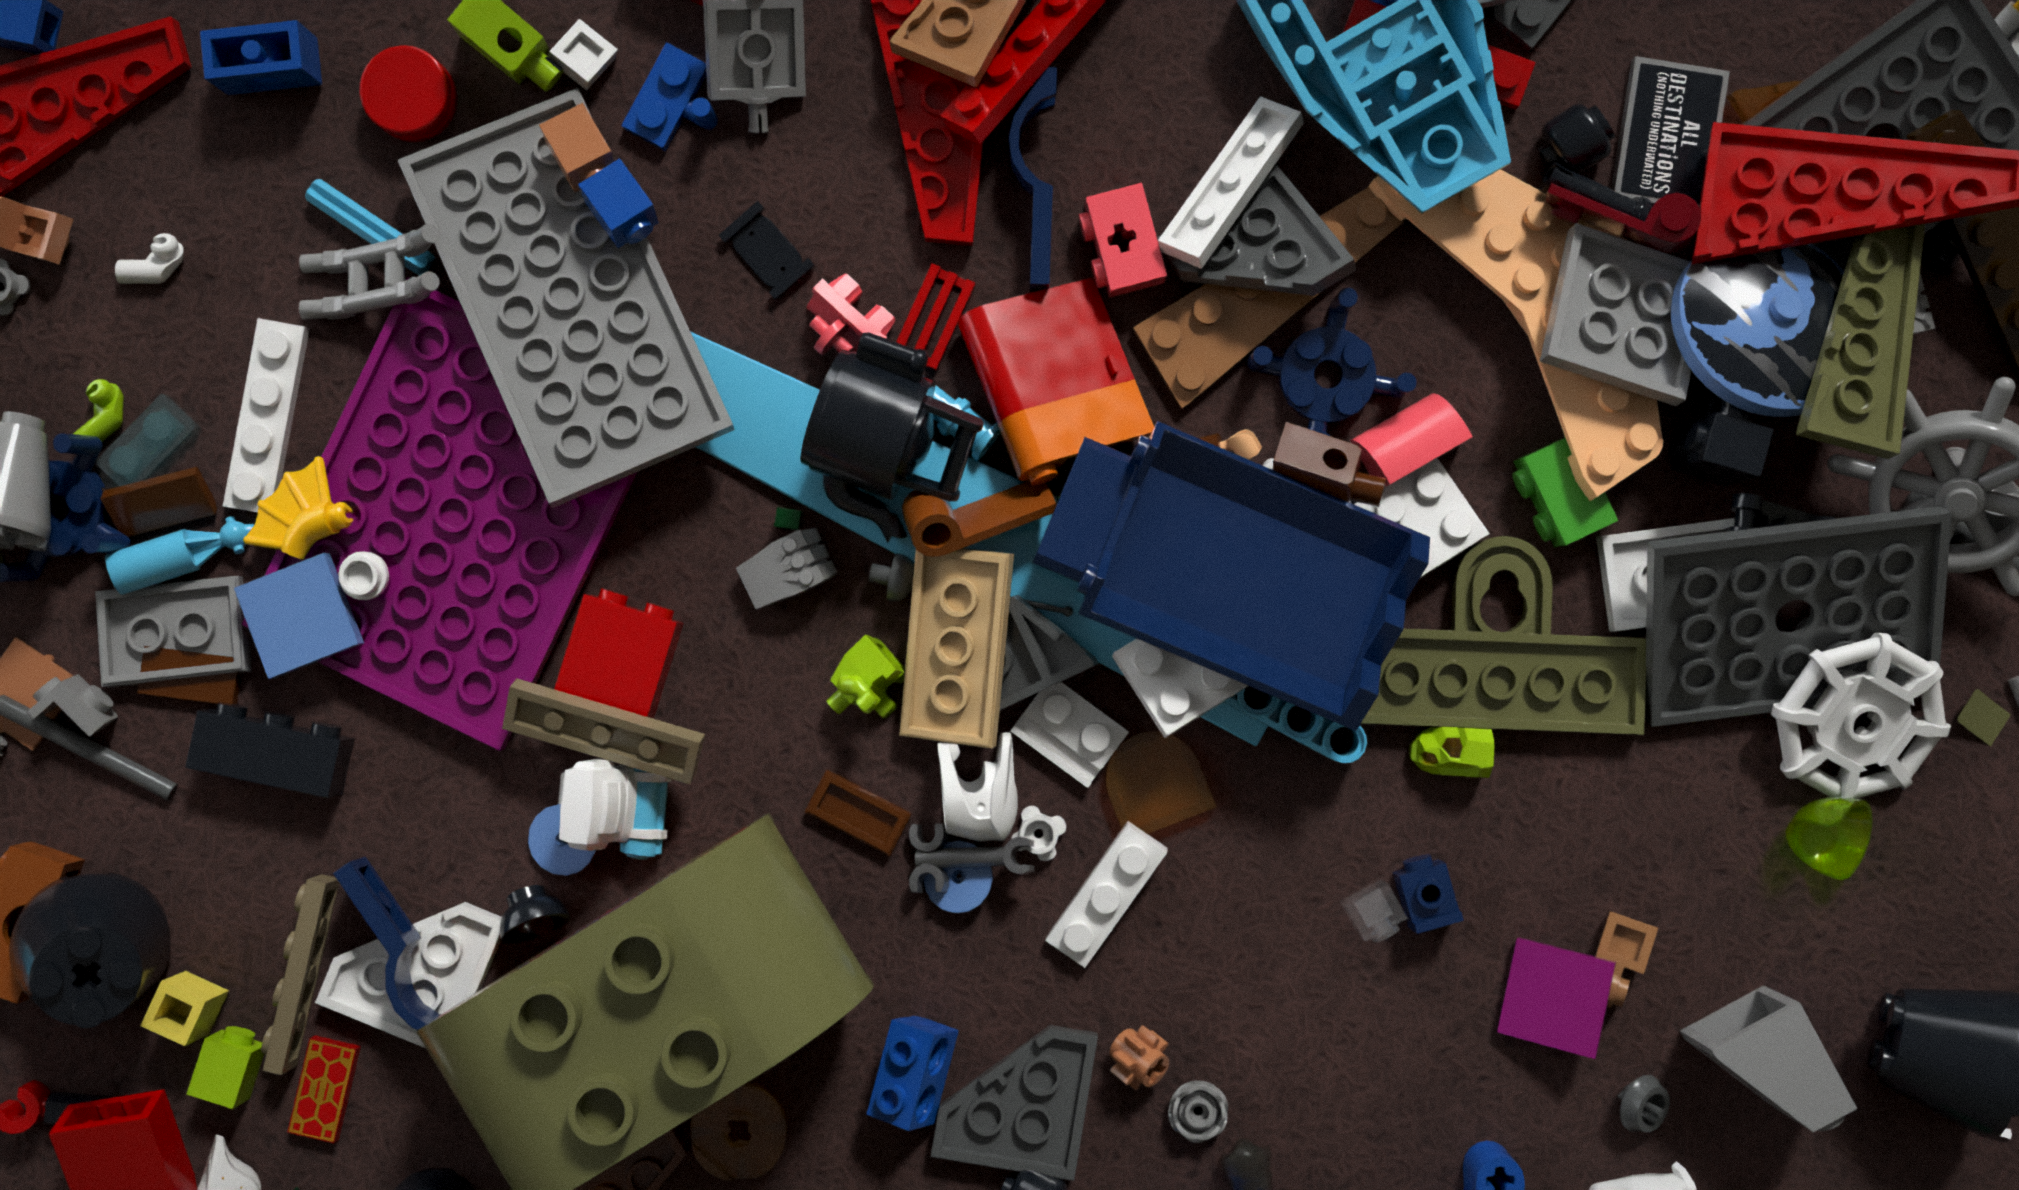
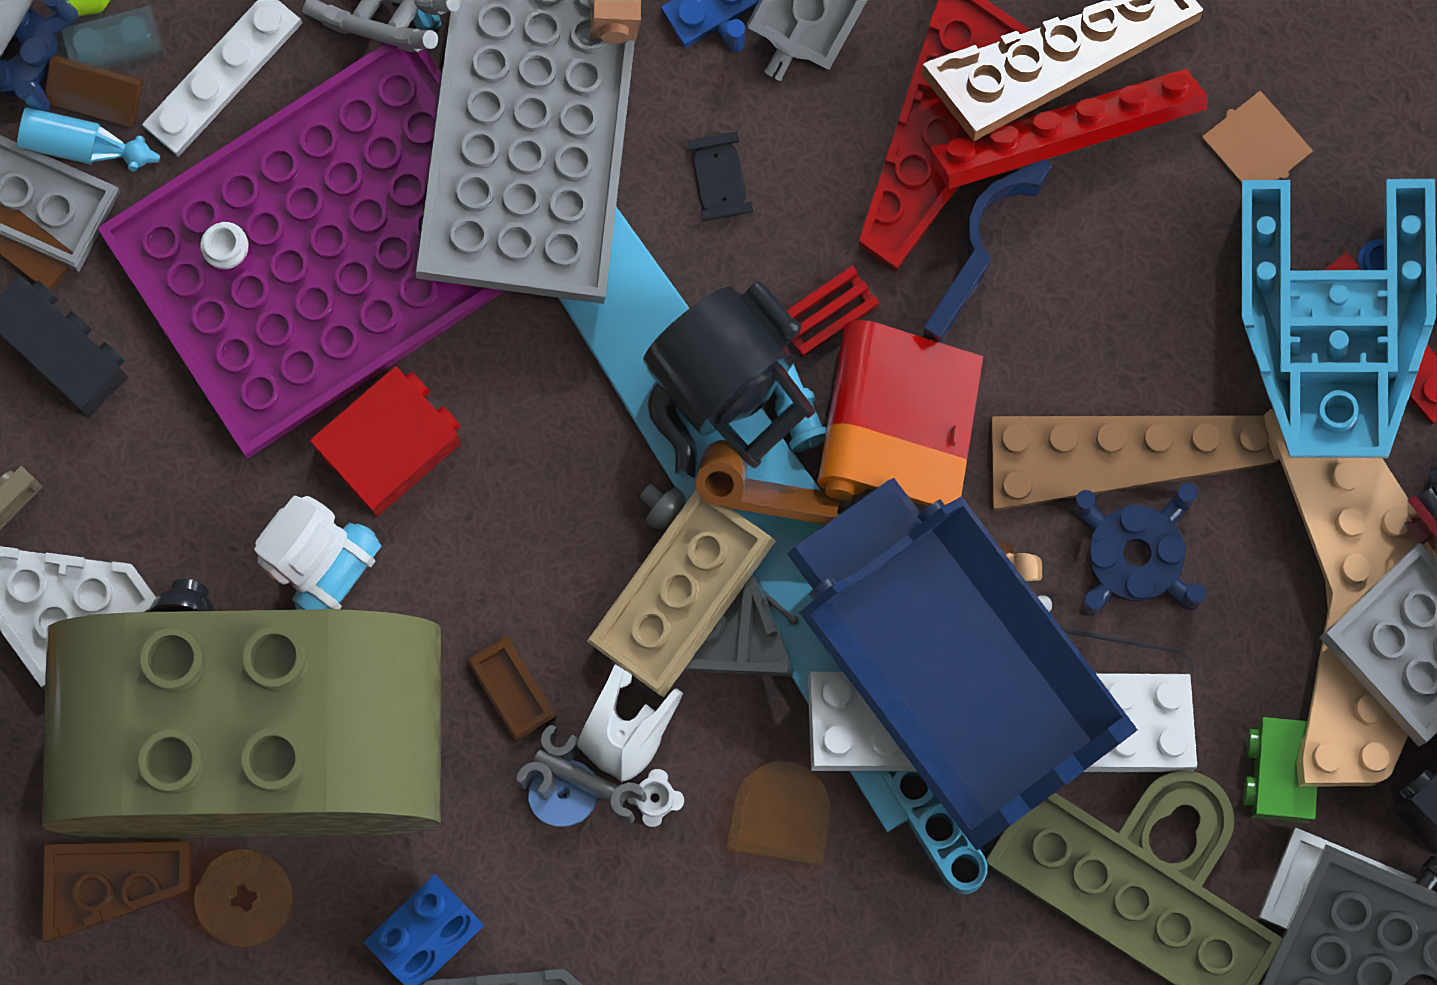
camera: 35 degrees right, 10 degrees down
(298, 615) = (150, 247): medium blue tile -> none
(299, 513) = (203, 164): yellow arm -> none
(393, 932) = (66, 549): dark blue piece -> none
(549, 850) = (232, 565): medium blue piece -> none
(603, 731) = (343, 486): dark tan plate -> none
(619, 204) = (621, 67): blue brick -> none
(786, 568) = (577, 446): light grey hand -> none
(787, 519) = (602, 406): dark green piece -> none
(839, 321) = (746, 263): coral hips -> none
(864, 678) = (587, 575): lime piece -> none
(1069, 732) = (734, 726): white plate -> none
(1106, 894) = (682, 883): white plate -> none
(1124, 212) = (1040, 316): coral brick -> none
(1230, 182) = (1145, 342): white plate -> none
(1274, 246) = (1139, 402): dark grey plate -> none
(1326, 465) = (1085, 620): reddish brown torso -> none
(1411, 438) = (1176, 649): coral brick -> none
(1454, 751) = (1057, 939): lime rock -> none

